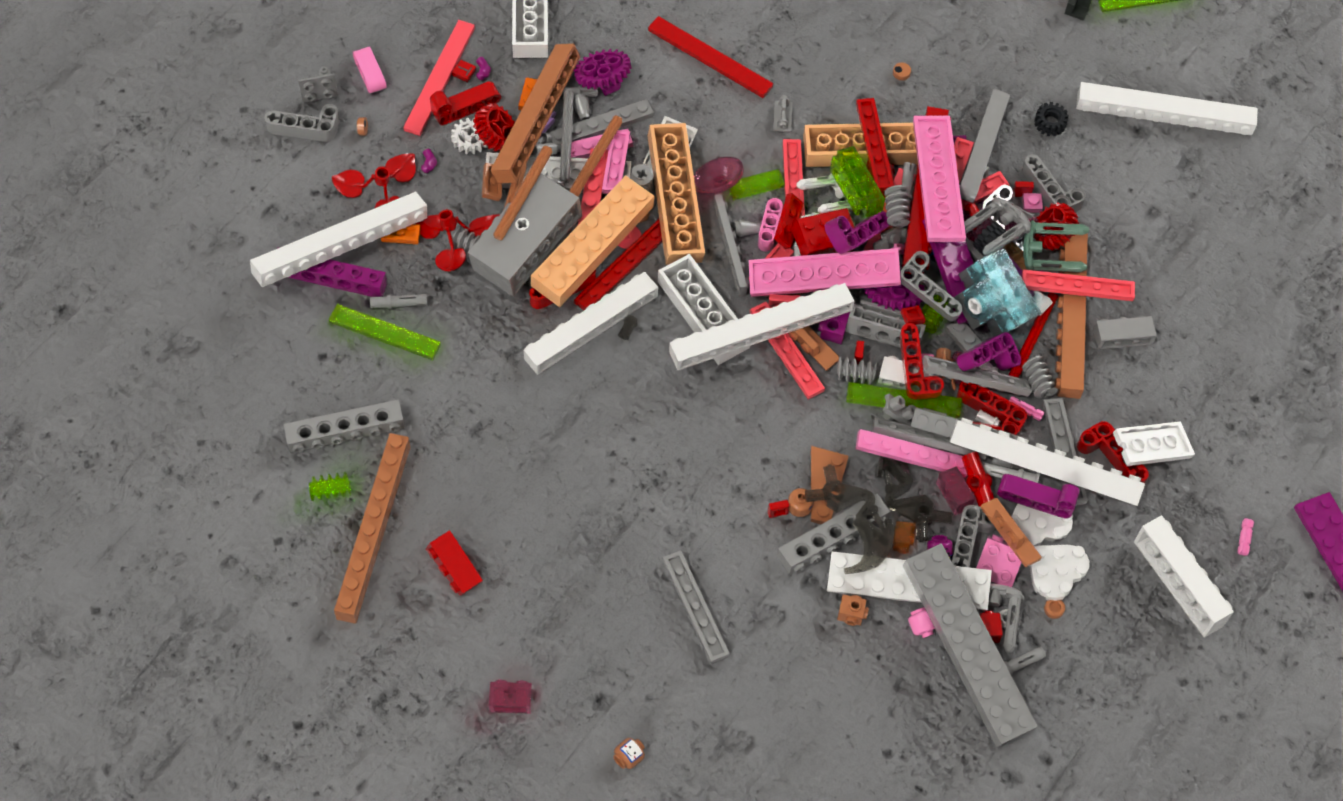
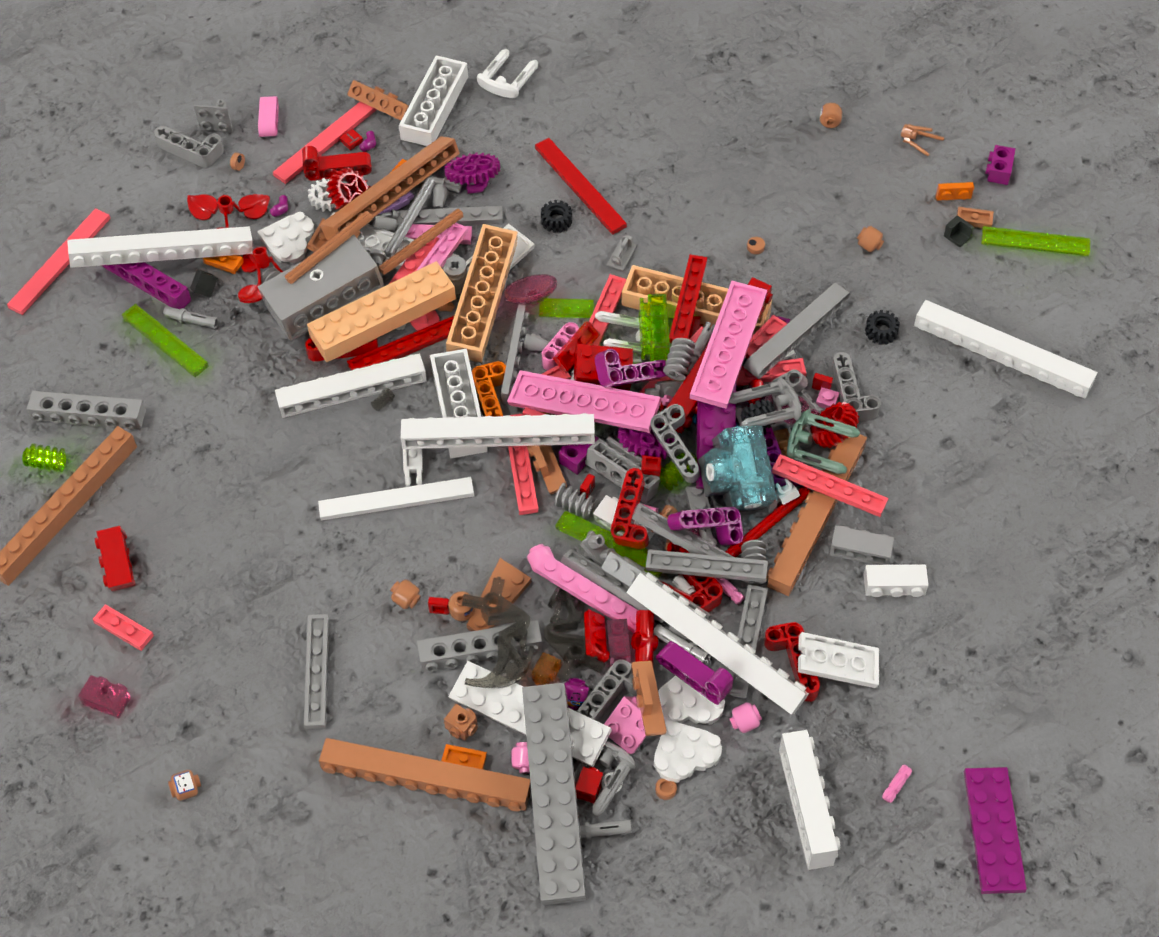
camera: 25 degrees right, 5 degrees down
(232, 283) = (56, 264): none -> coral tile
(394, 262) = (203, 283): none -> pearl dark grey panel
(453, 190) = (288, 237): none -> white plate
(474, 22) = (378, 99): none -> nougat bracket
(492, 626) = (123, 627): none -> coral plate
(686, 381) = (413, 464): none -> white hinge
(686, 420) = (395, 498): none -> white tile
(703, 103) = (556, 208): none -> black tyre
(720, 282) = (485, 380): none -> orange beam
(742, 508) = (405, 594): none -> nougat head
(841, 668) = (425, 774): none -> nougat brick
(848, 434) = (537, 554): none -> bright pink head
(868, 642) = (464, 756): none -> orange plate
(934, 491) = (595, 636): none -> red plate
(1003, 35) = (870, 239): none -> nougat head
(1005, 394) = (707, 565): none -> light grey plate
(1095, 521) = (745, 717): none -> bright pink head
(1167, 355) = (895, 580): none -> white brick

